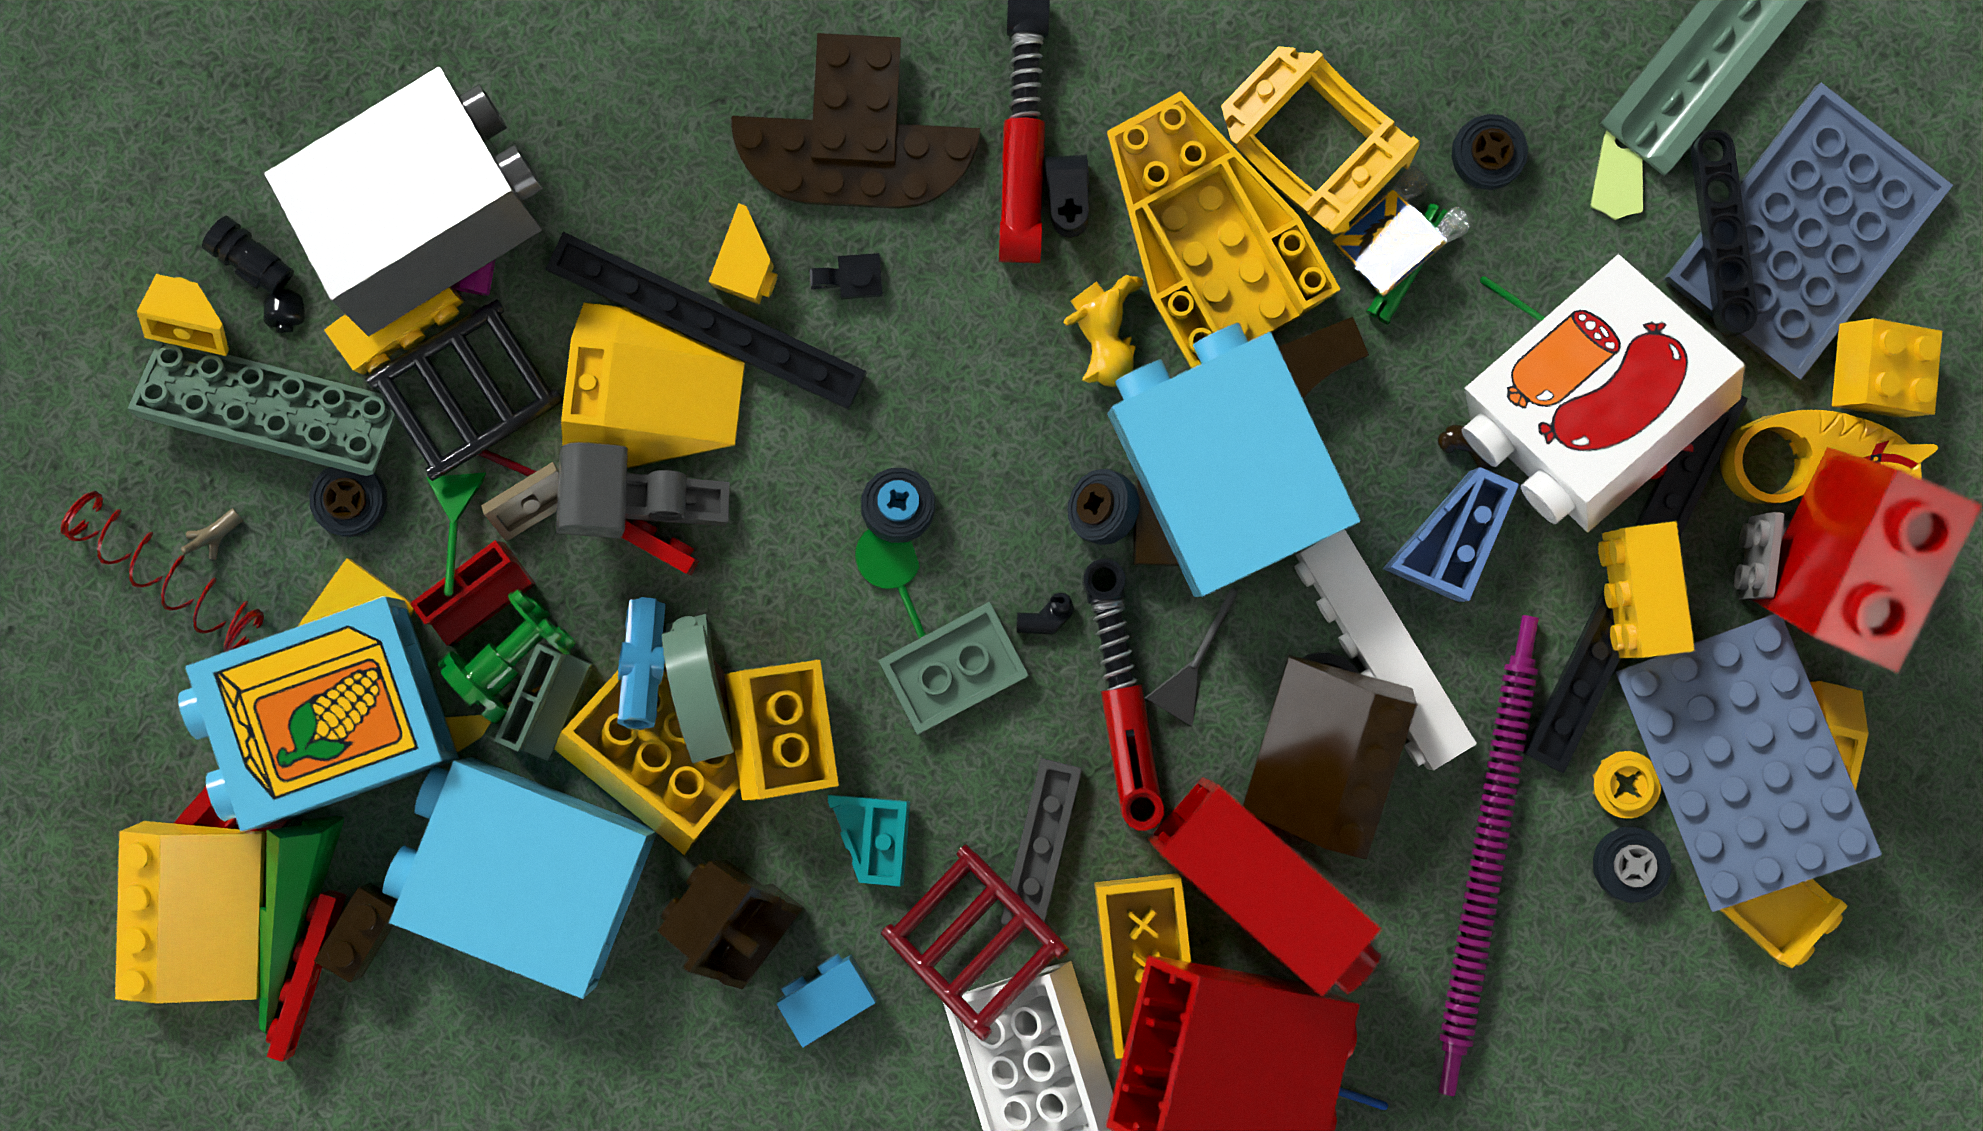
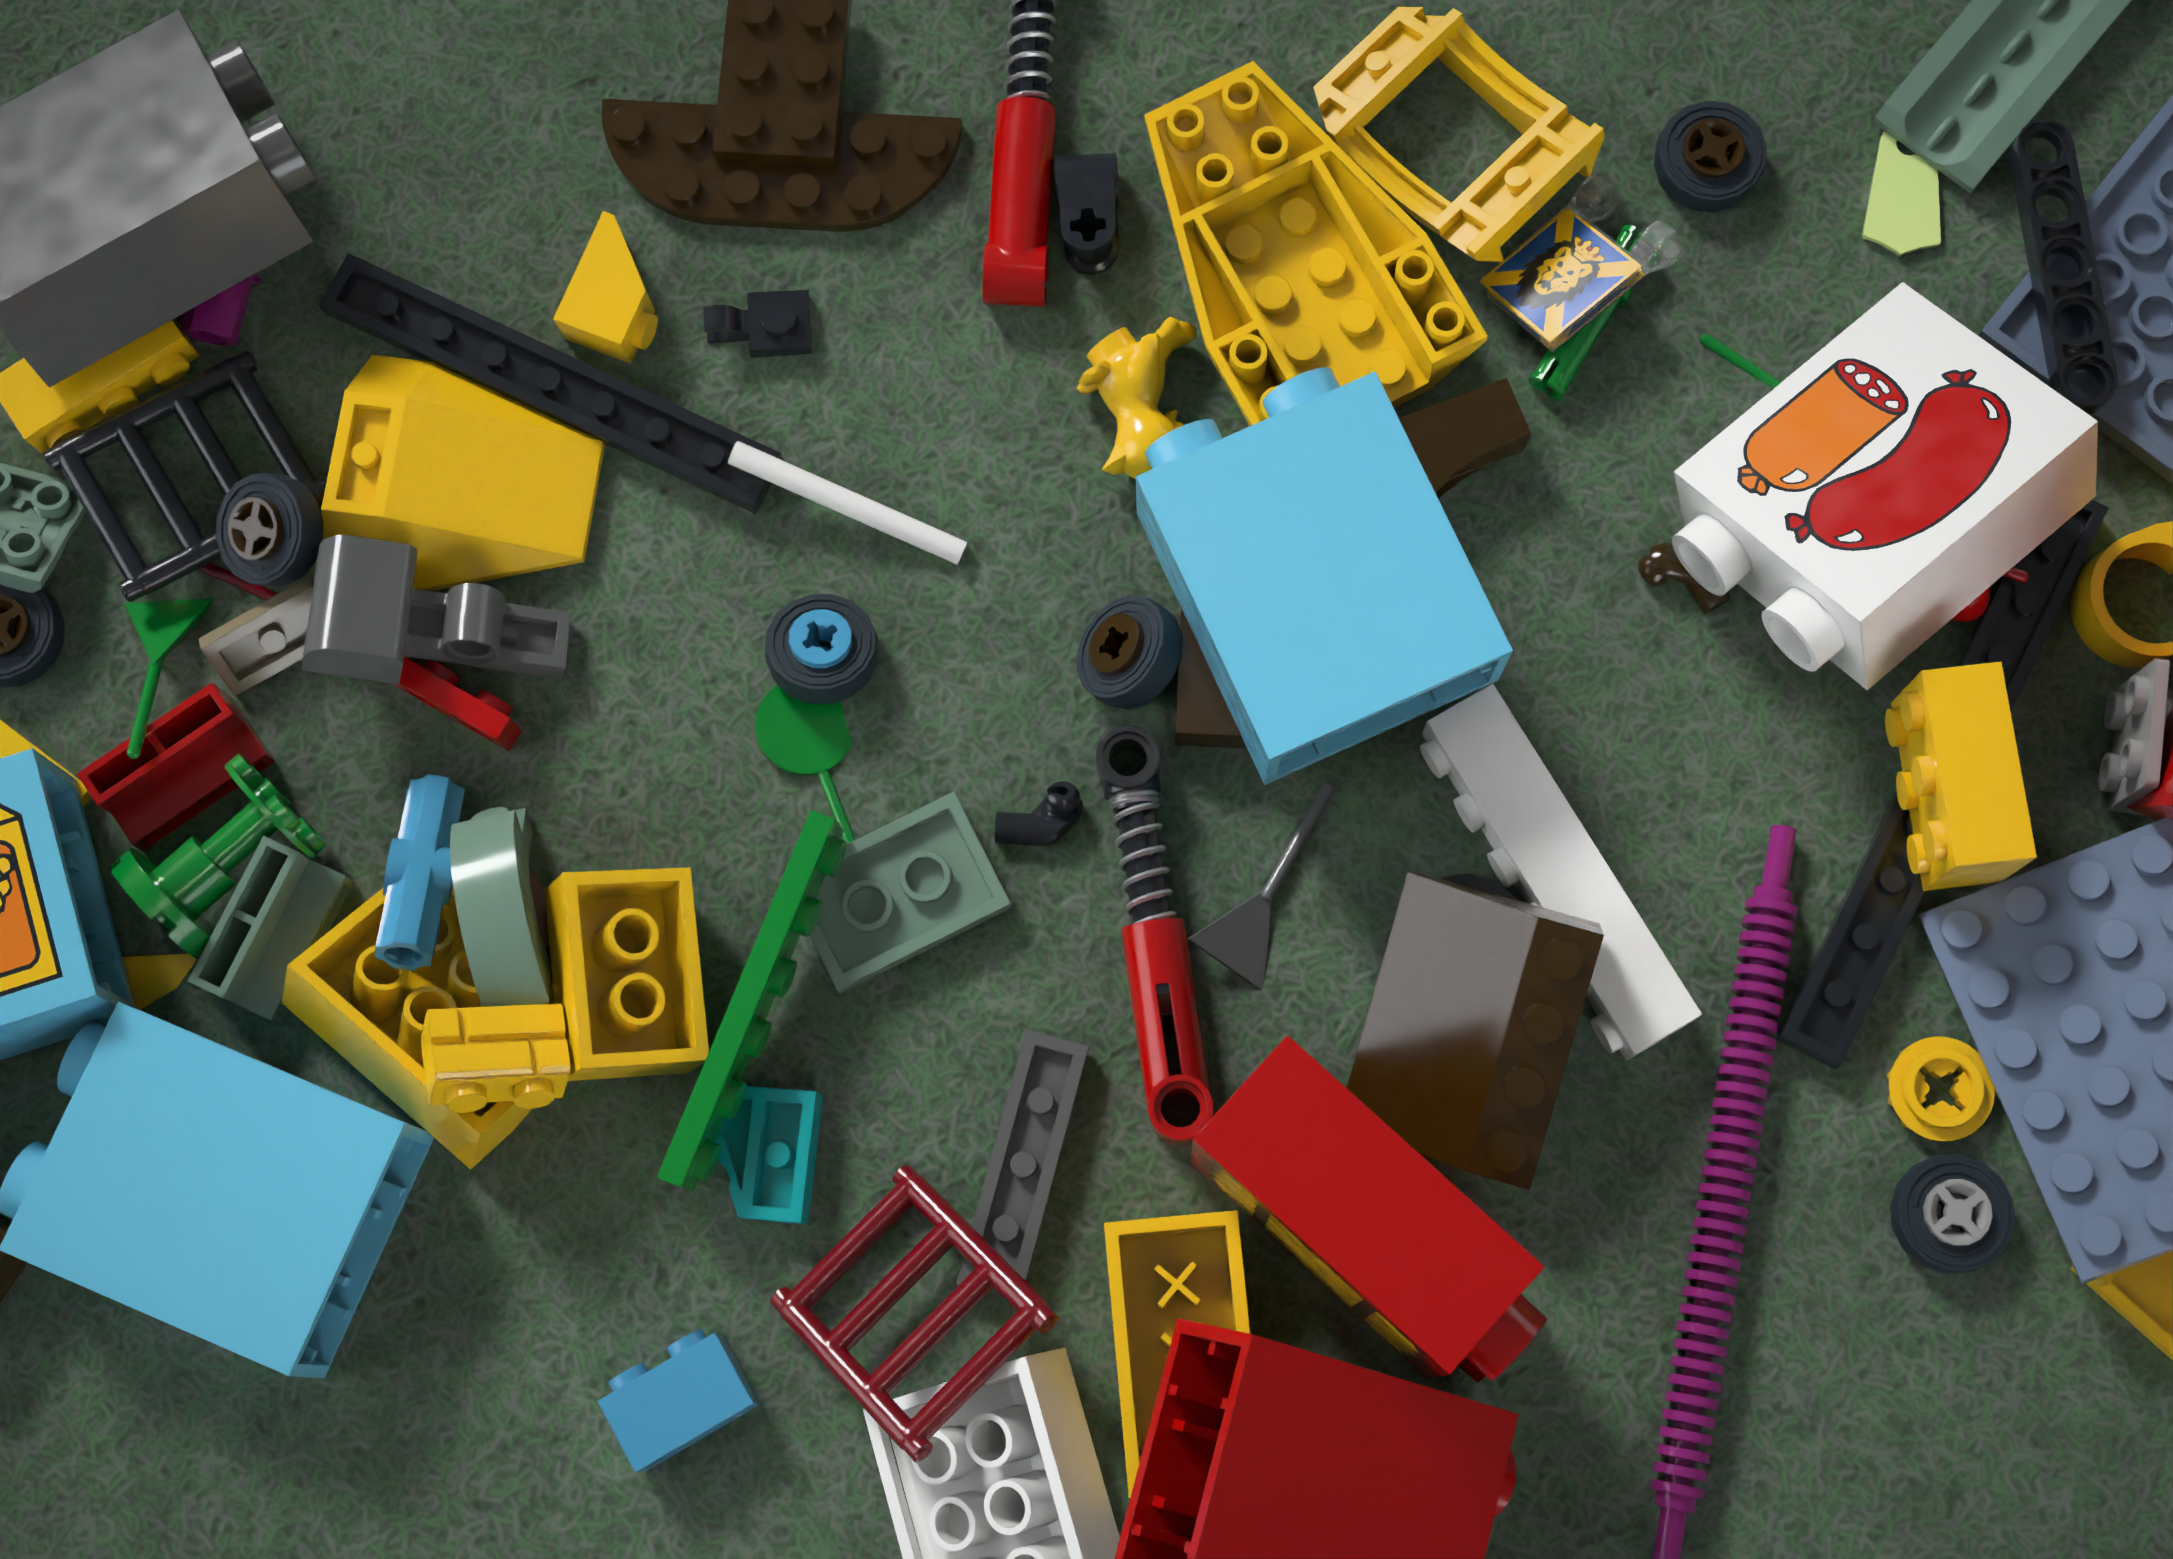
camera: 10 degrees right, 10 degrees down
(516, 446) = (246, 533): none -> black wheel
(701, 789) = (495, 1056): none -> yellow brick
(727, 922) = (528, 1272): dark brown piece -> none
(860, 764) = (744, 1025): none -> green plate
(911, 404) = (847, 502): none -> white bar
(1457, 537) = (1665, 707): medium blue wedge -> none

